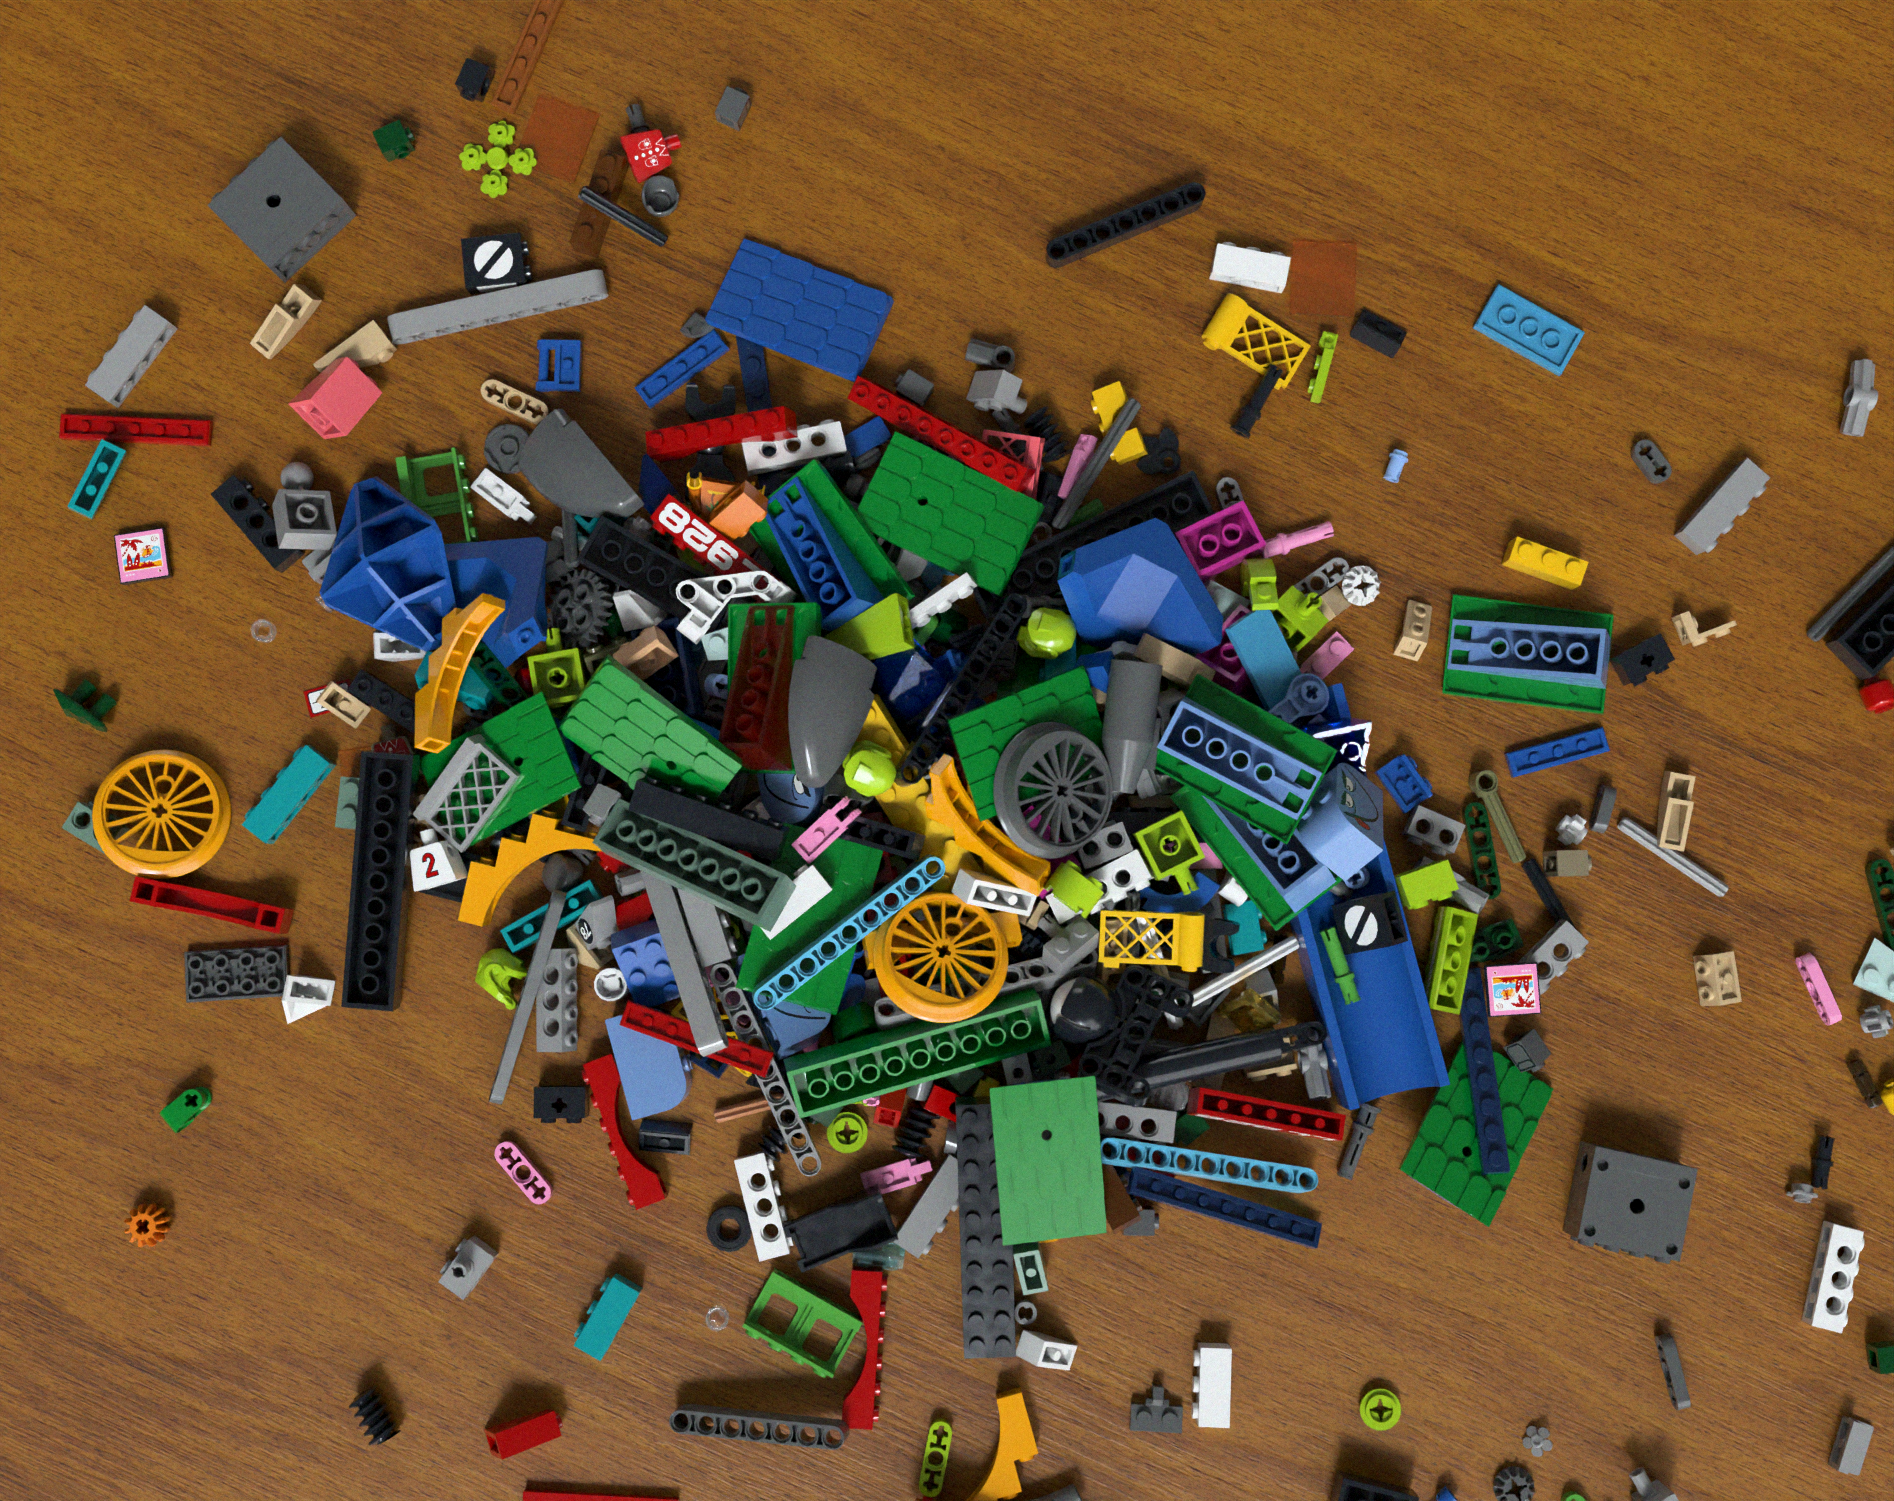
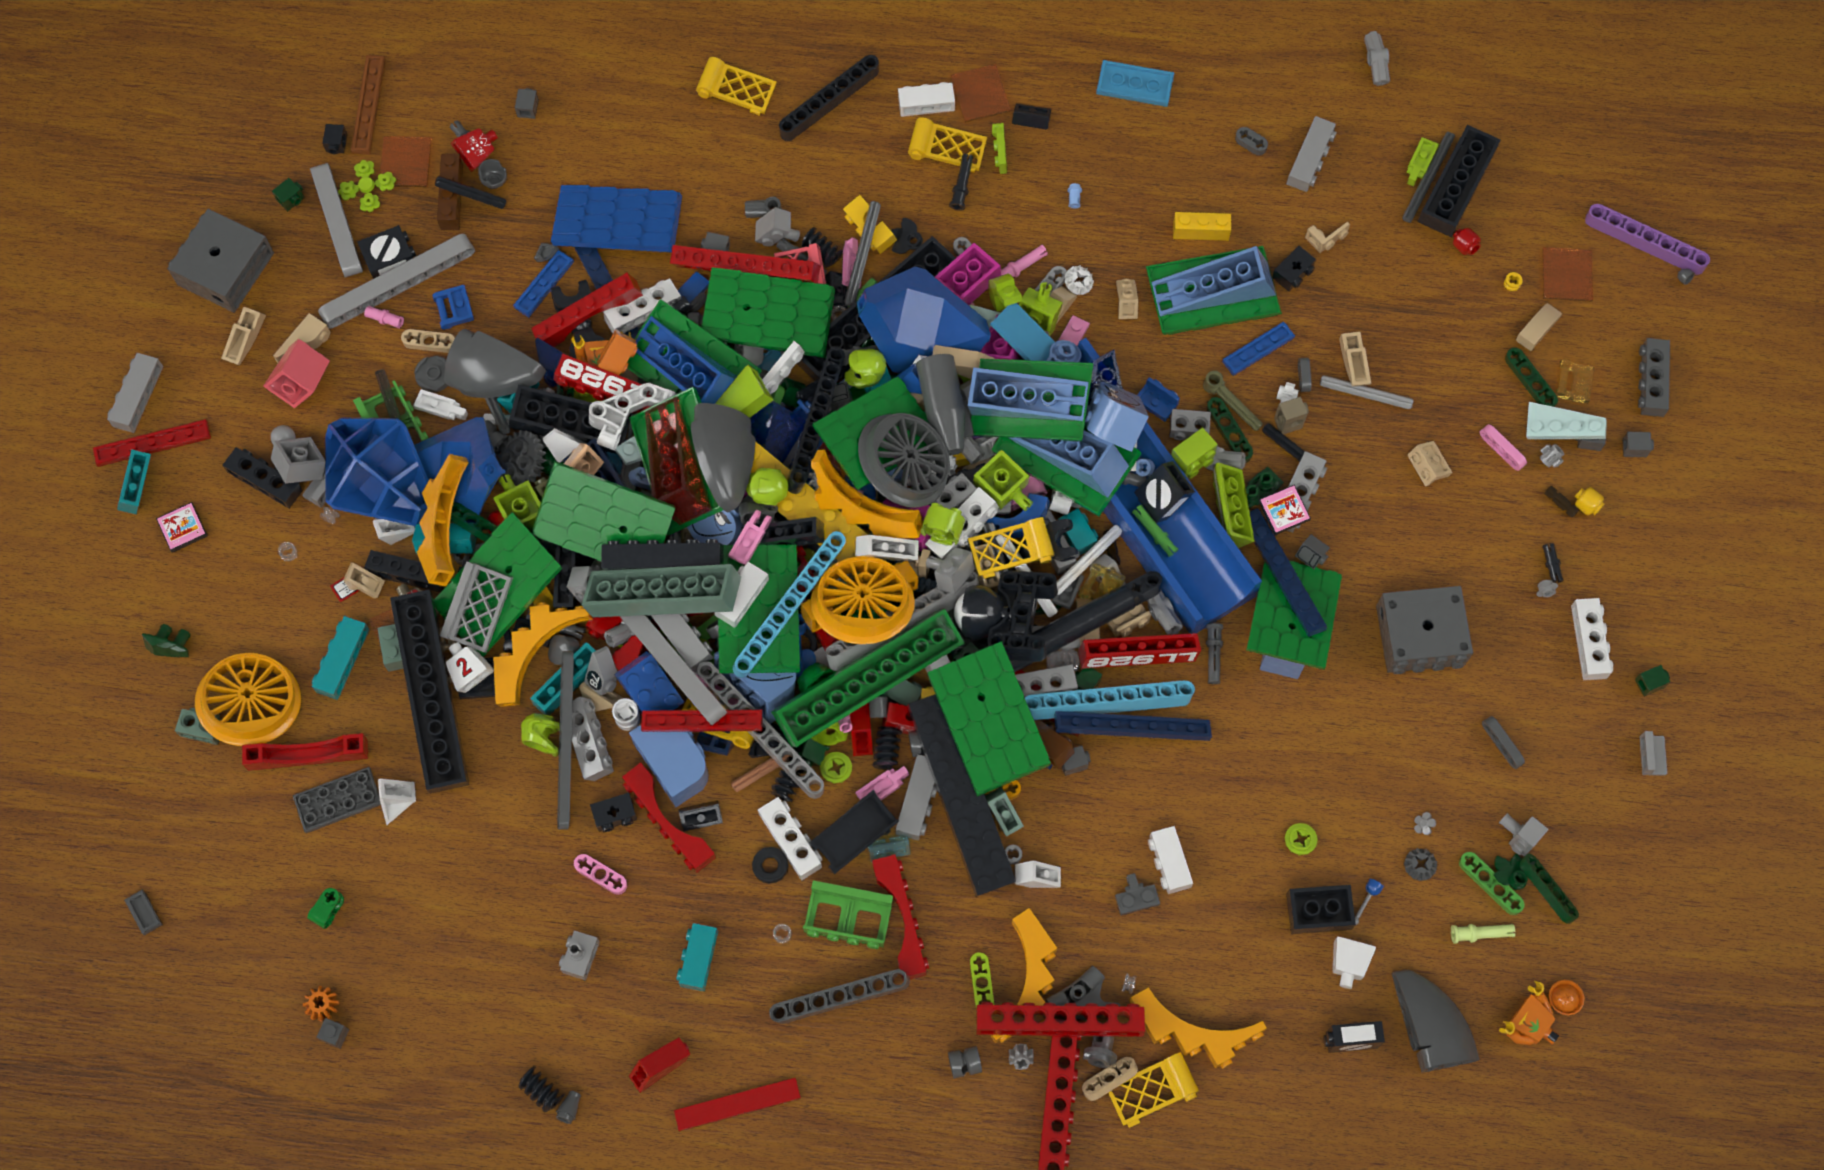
camera: 15 degrees left, 15 degrees down
(150, 1267) = (332, 1033): none -> dark grey brick
(401, 1448) = (568, 1108): none -> dark grey cone
(442, 475) = (387, 394): none -> clear smoke axle
(445, 196) = (336, 220): none -> light grey beam
(468, 351) = (384, 317): none -> bright pink pin
(983, 149) = (713, 78): none -> yellow piece
(1862, 560) = (1421, 160): none -> lime hinge

